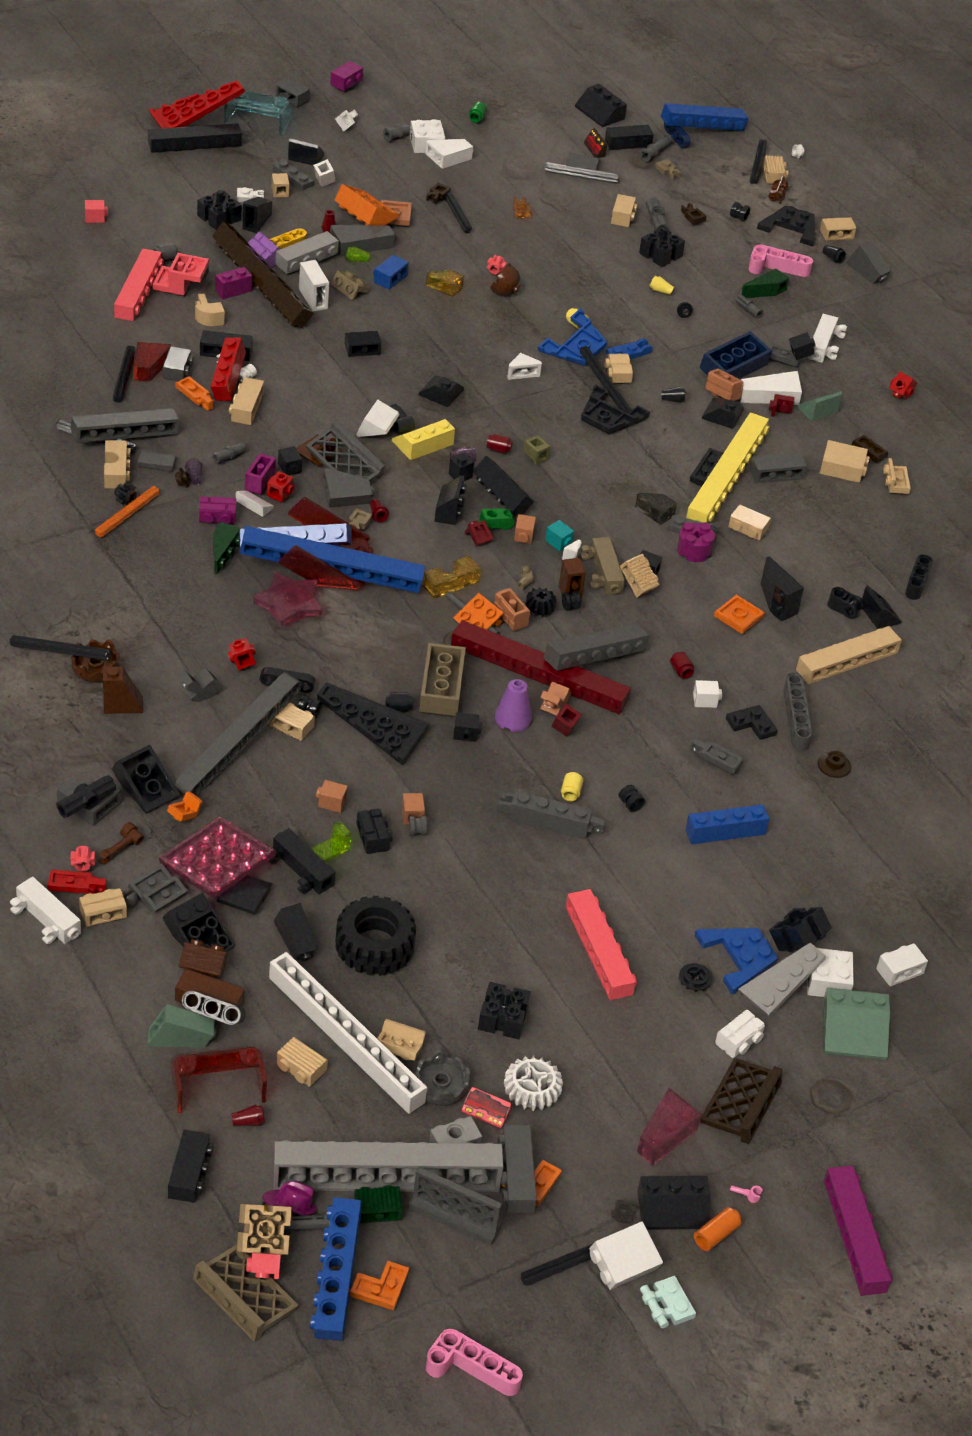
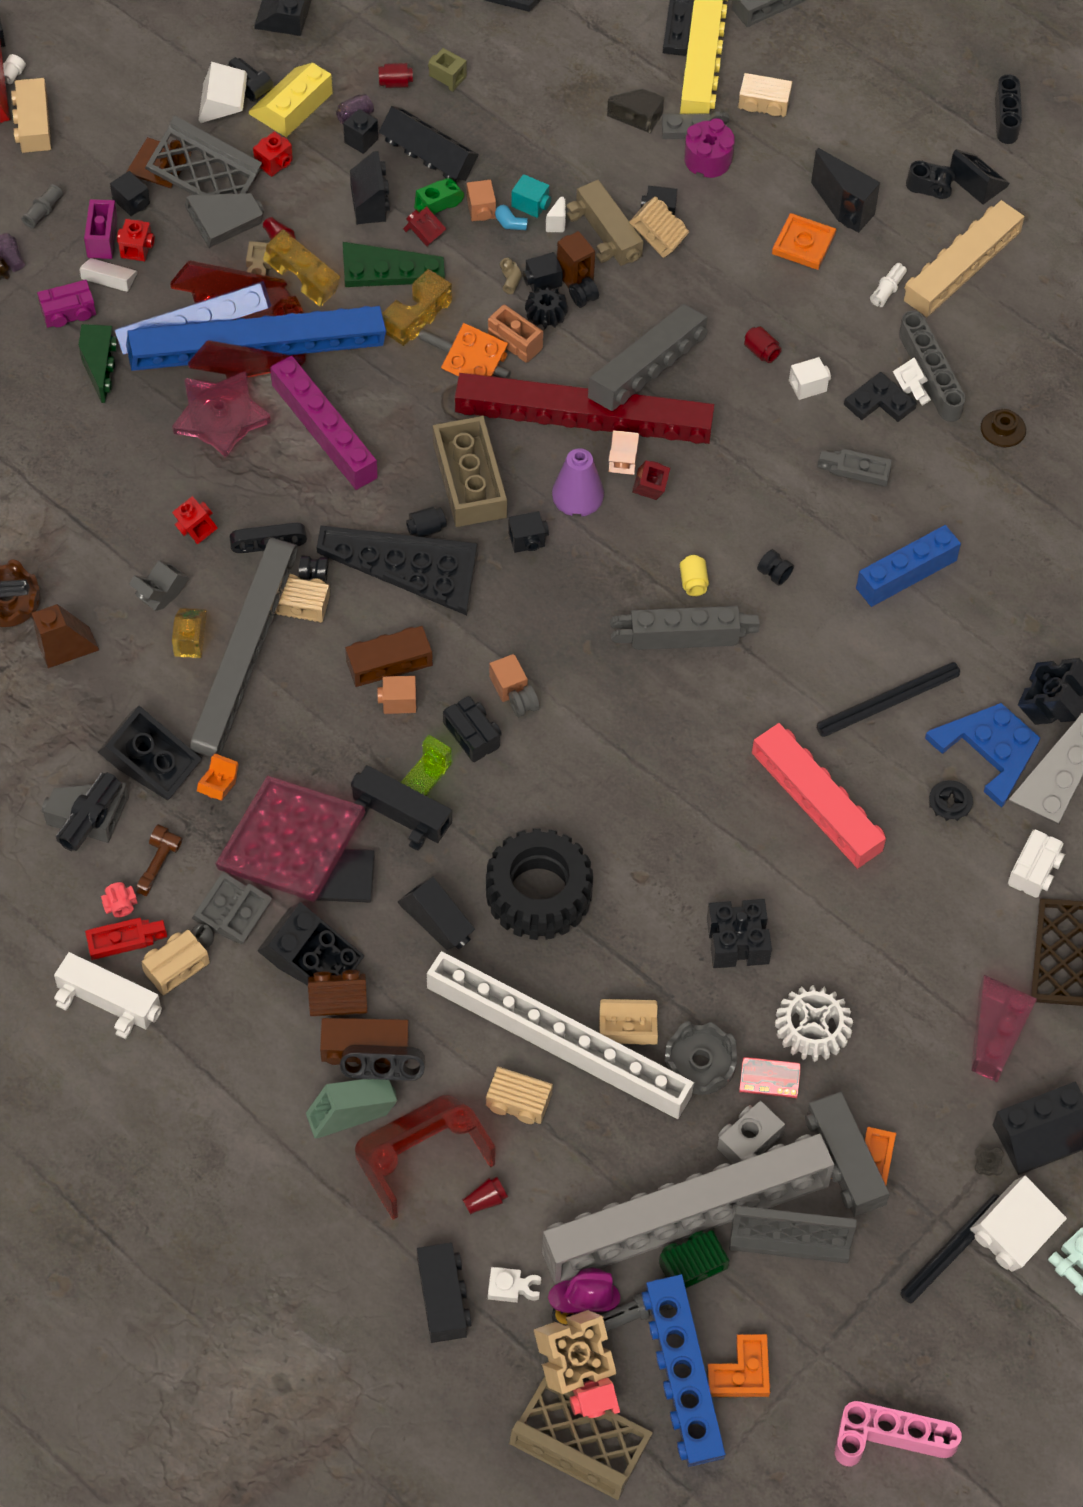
camera: 15 degrees left, 15 degrees up
(206, 719) = (188, 632): none -> clear yellow slope
(240, 1177) = (507, 1285): none -> white plate
(342, 770) = (388, 656): none -> reddish brown brick
(357, 624) = (324, 422): none -> magenta brick
(376, 520) = (317, 278): none -> clear yellow arch
(396, 464) = (274, 153): none -> red brick
(441, 549) = (384, 266): none -> dark green wing
(539, 547) = (508, 220): none -> dark azure arm
(548, 579) = (543, 272): none -> black brick
(677, 902) = (888, 699): none -> black axle
(779, 714) = (911, 379): none -> white plate
(787, 656) = (888, 285): none -> white axle

